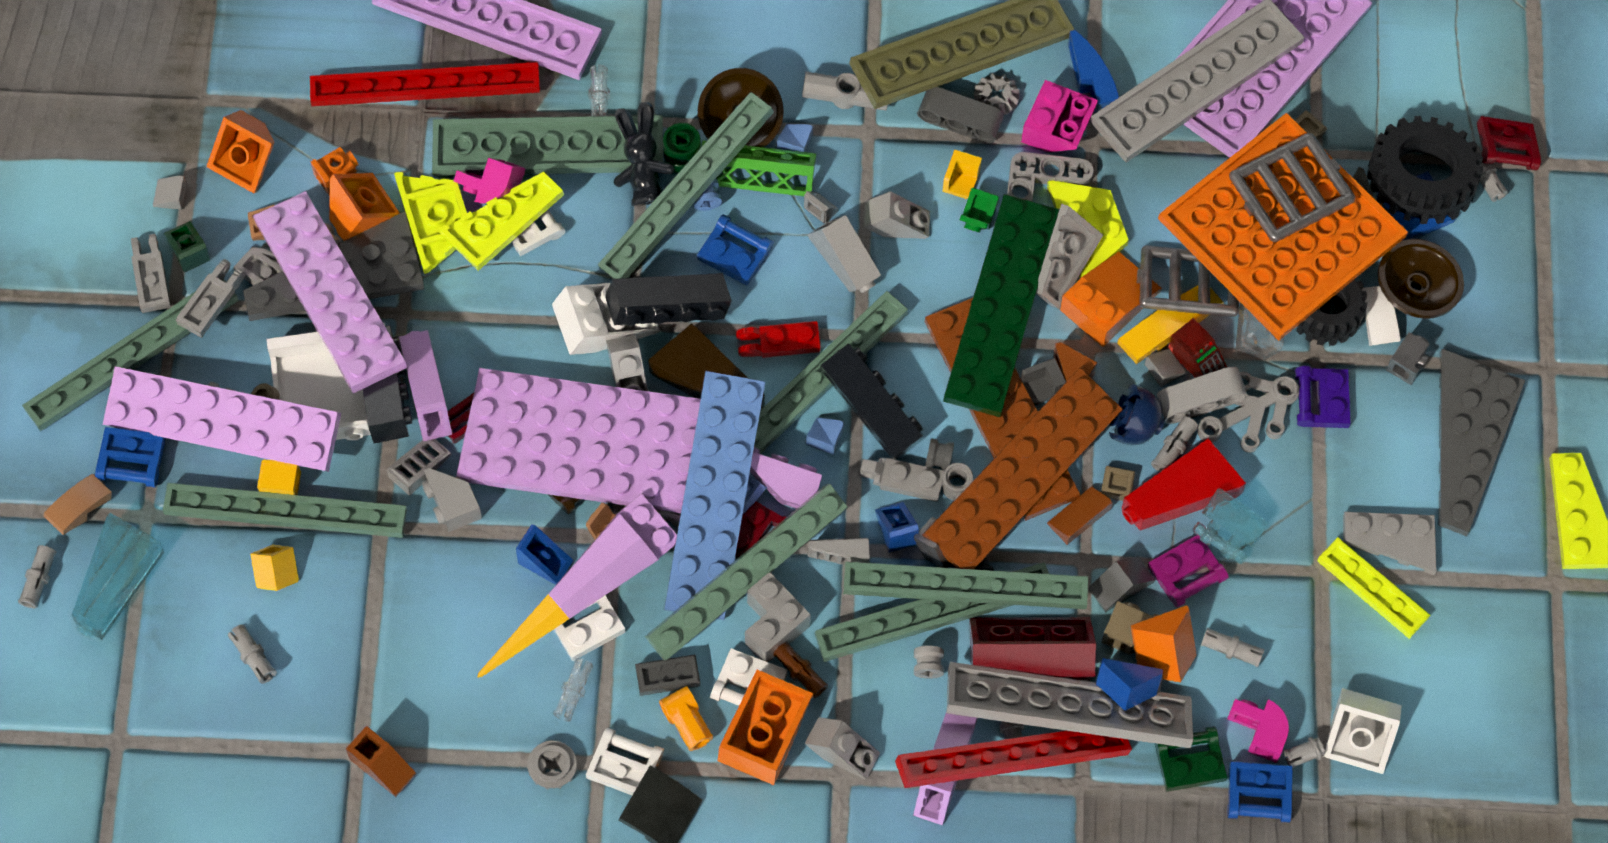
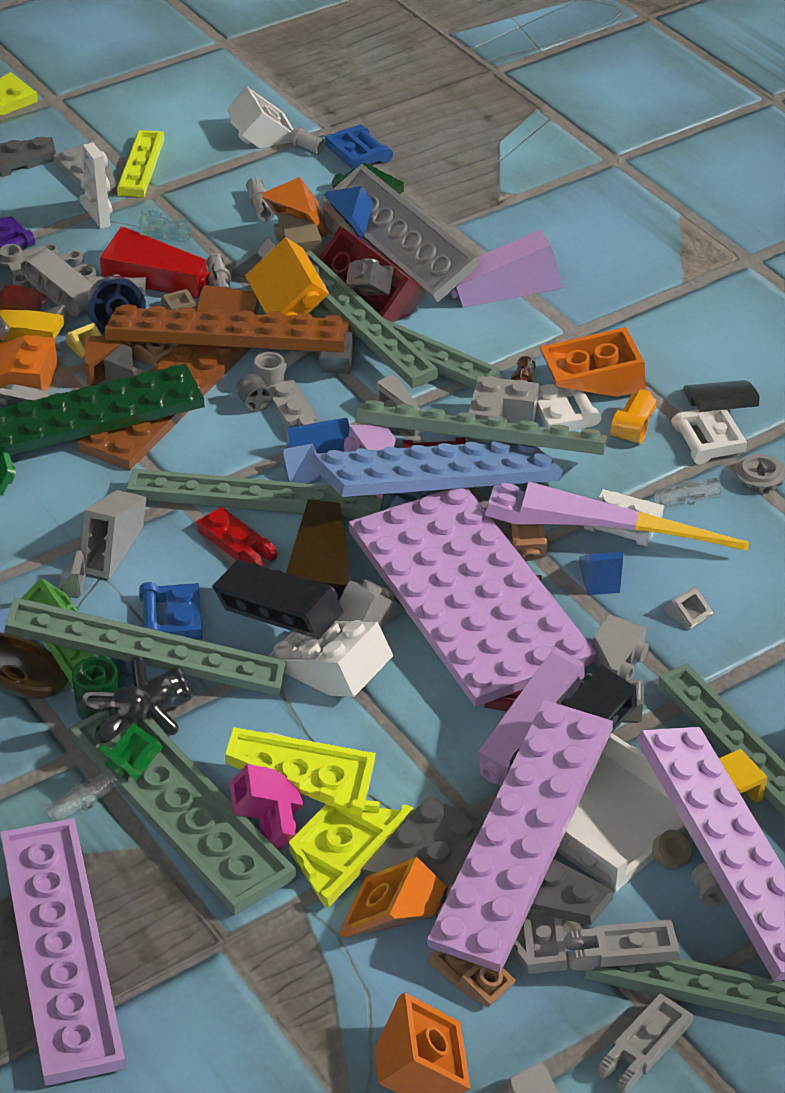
camera: 125 degrees left, 25 degrees down
(187, 246) = (583, 1018): dark green slope -> none
(333, 163) = (369, 956): orange brick -> none
(424, 84) = (198, 951): red plate -> none
(460, 591) = (689, 608): none -> light grey slope
(595, 122) = (131, 753): none -> green bracket
(667, 675) = (620, 450): dark grey plate -> none
(842, 747) = (558, 325): light grey slope -> none
(843, 462) = (323, 435): none -> blue slope
(871, 401) = (248, 437): black brick -> none
(896, 217) = (43, 518): light grey slope -> none
(897, 526) = (344, 383): blue slope -> none
(928, 662) = (439, 320): light grey wheel -> none
(1001, 617) = (369, 277): none -> flat silver brick
(1006, 756) = (498, 228): red plate -> none
(1048, 553) = (287, 281): none -> light orange brick
(1115, 379) = (76, 338): none -> light yellow slope
(1128, 533) = (219, 275): none -> light grey pin
(1182, 563) = (204, 244): magenta plate -> none
(1270, 727) = (309, 157): dark pink brick -> none
(1318, 490) = (95, 185): none -> white wing

